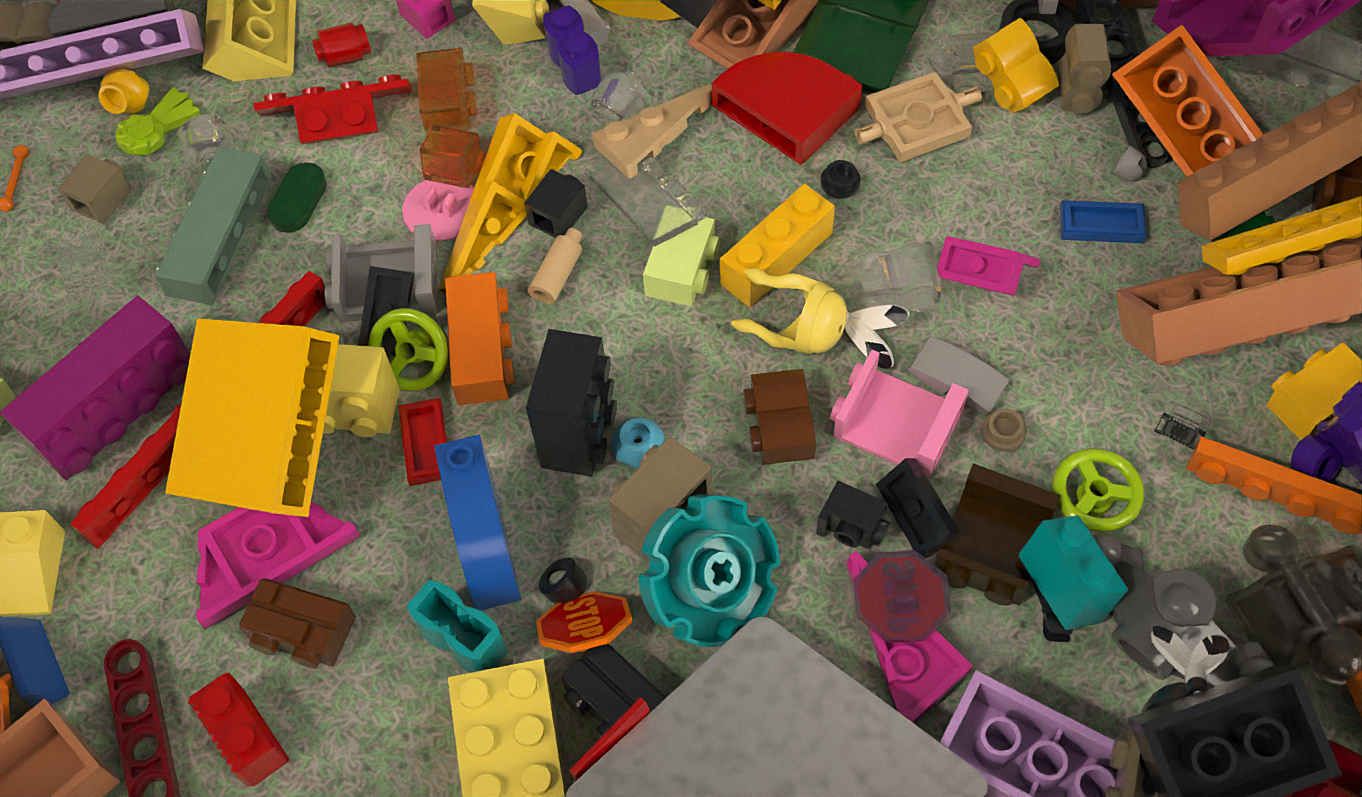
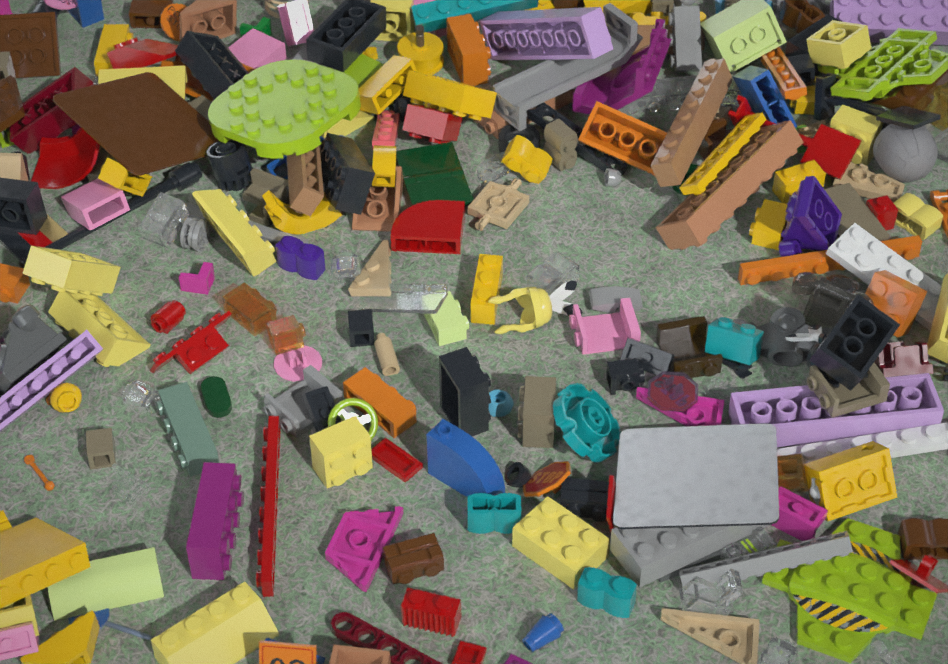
camera: 40 degrees left, 15 degrees down
(147, 133) = (98, 411): lime piece -> none
(253, 415) = (318, 477): yellow brick -> none
(511, 171) = (324, 330): yellow wedge -> none
(781, 416) = (555, 355): reddish brown brick -> none
(840, 179) = (487, 246): black plate -> none
(983, 265) = (590, 247): dark pink panel -> none
(1004, 430) = (654, 309): dark tan plate -> none
(1091, 506) = (715, 310): lime piece -> none
(1102, 221) = (620, 207): blue tile -> none
(1182, 424) = (727, 266): tile -> none

